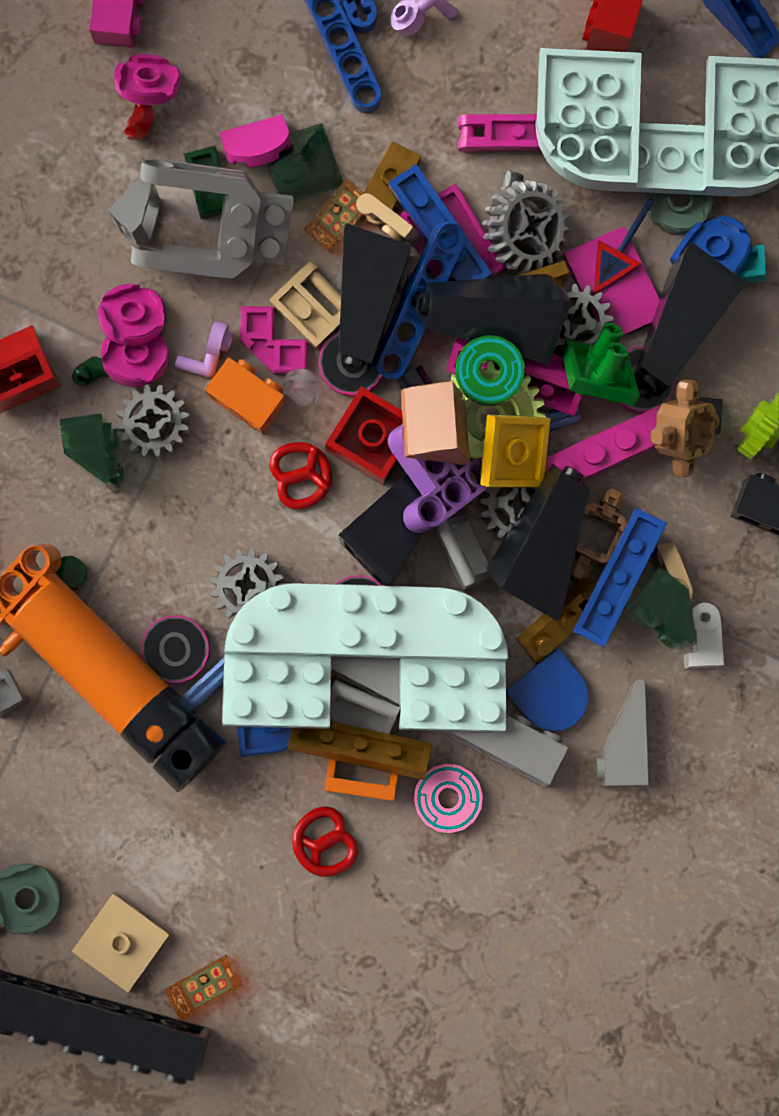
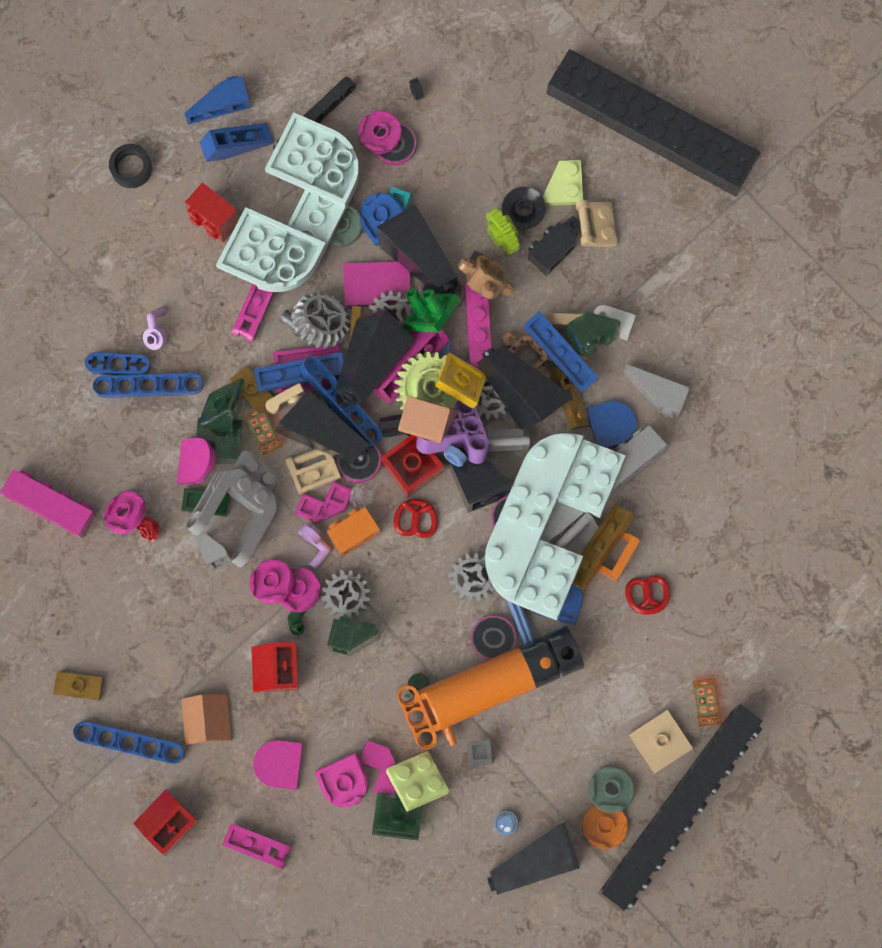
camera: 70 degrees left, 5 degrees down
(345, 148) = (223, 407): none -> clear green slope
(401, 487) = (455, 456): none -> medium blue tile
(468, 804) = (653, 497): bright pink tile -> none
(494, 350) = (409, 361): green tile -> none
(613, 263) = (363, 279): piece -> none

